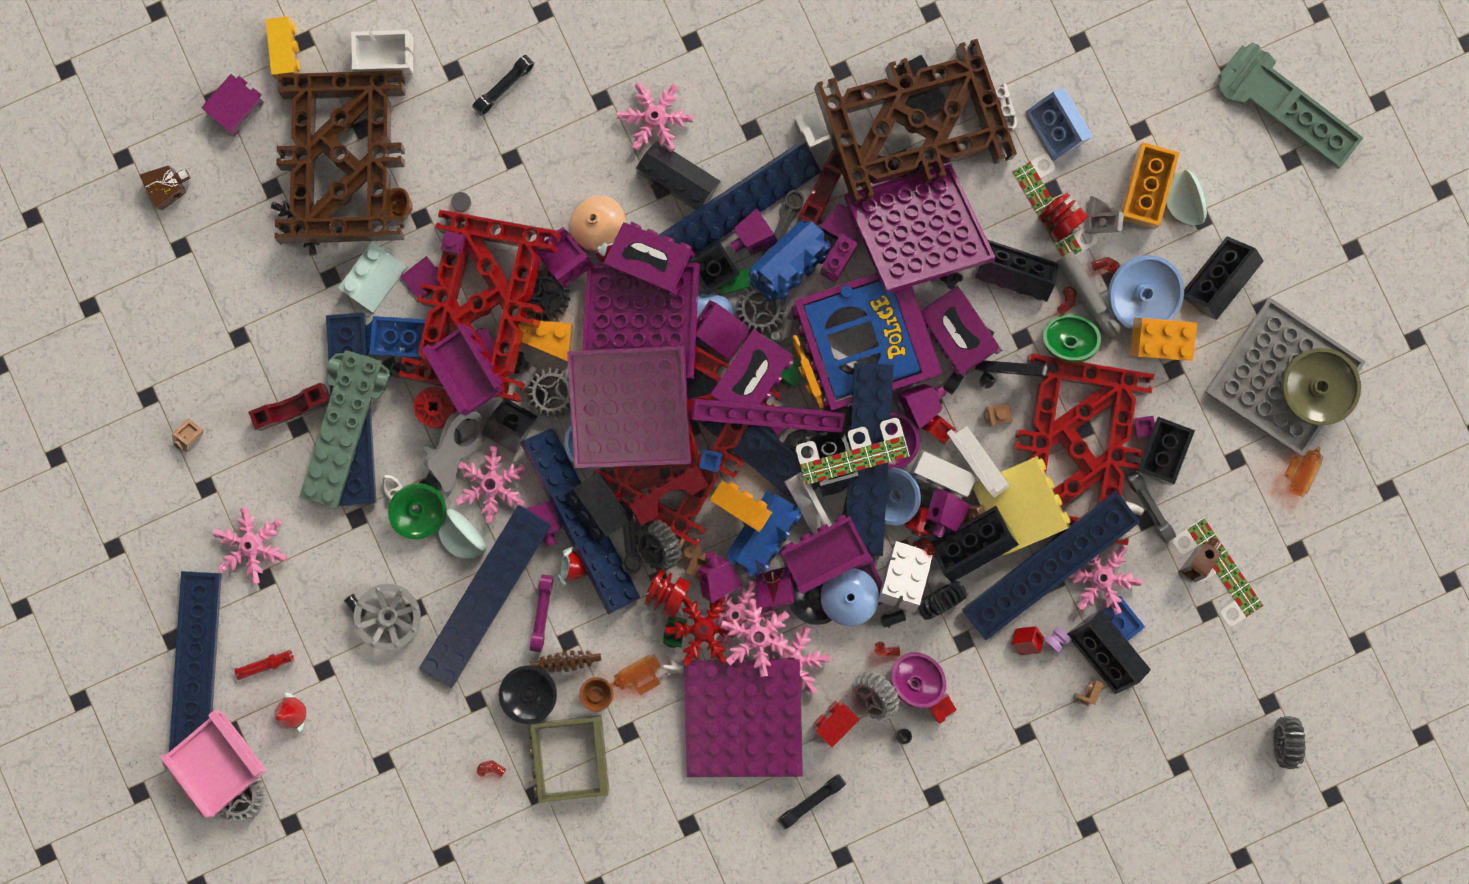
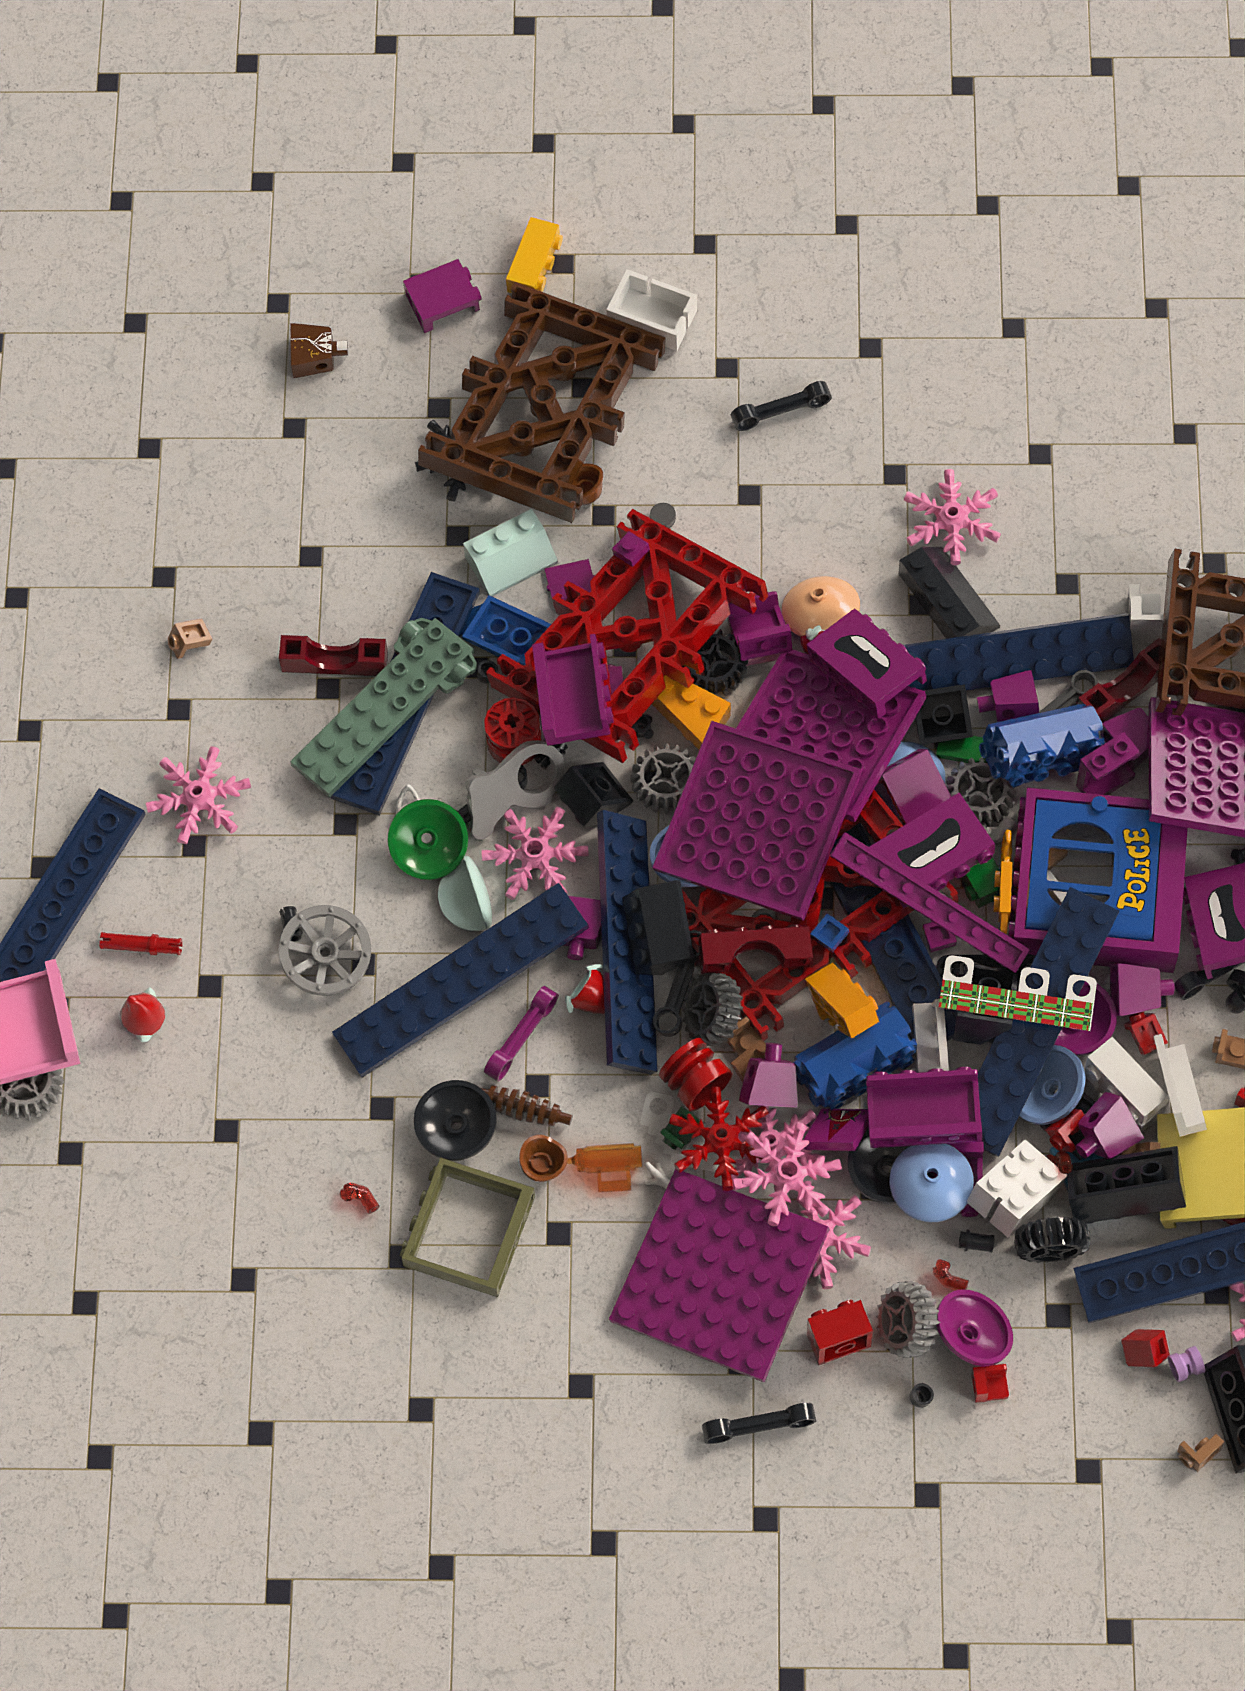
camera: 25 degrees right, 20 degrees down
(527, 376) = (640, 750): light grey cylinder -> none

